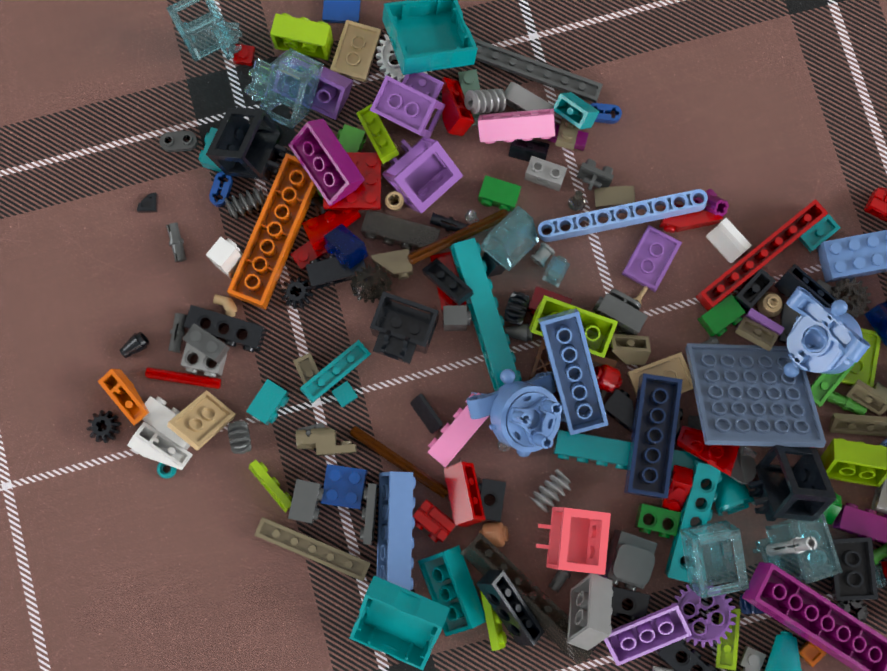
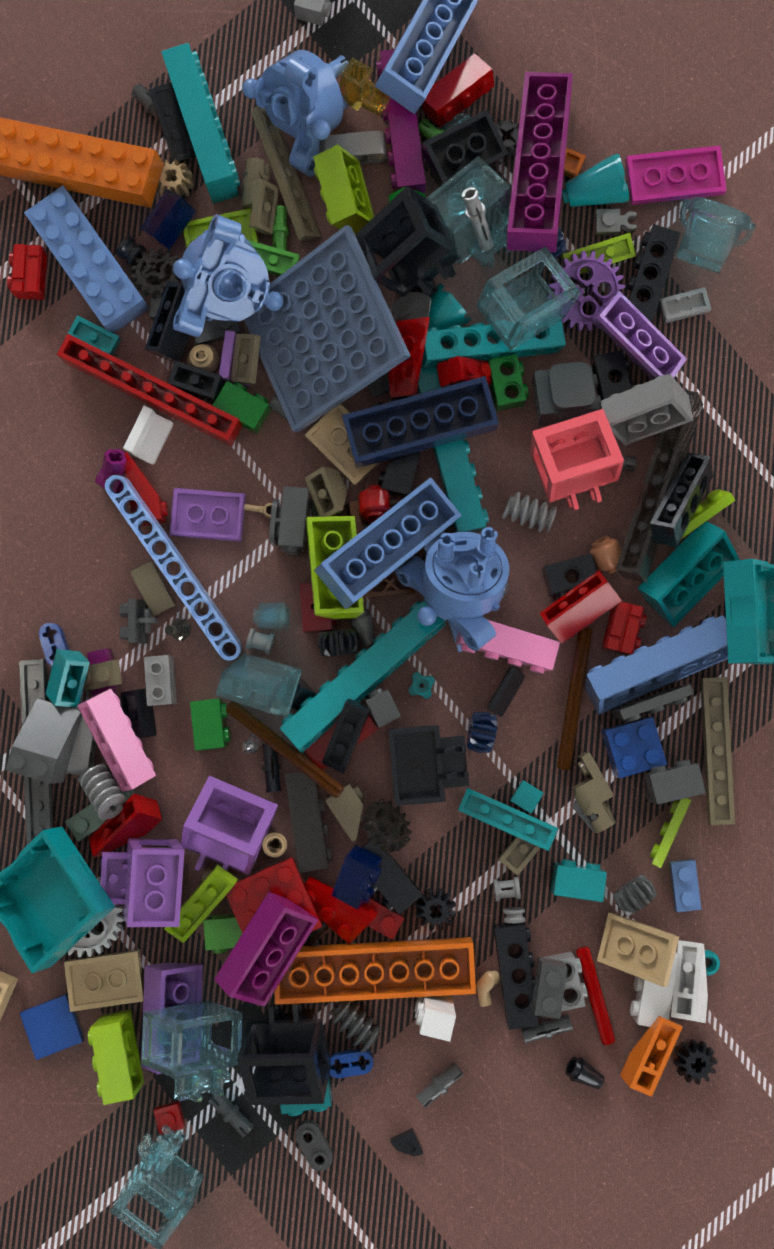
camera: 110 degrees left, 5 degrees up
(227, 95) = (231, 1114): none -> dark grey pin
(228, 479) = (685, 885): none -> medium blue plate
(266, 346) = (514, 915): none -> light grey bush
(287, 356) = (499, 894): none -> light grey bush
(405, 381) = (482, 732): none -> dark blue gear
(459, 350) = (415, 689): none -> teal plate
(537, 76) = (45, 742): none -> slope
(875, 286) = (129, 250): none -> black wheel

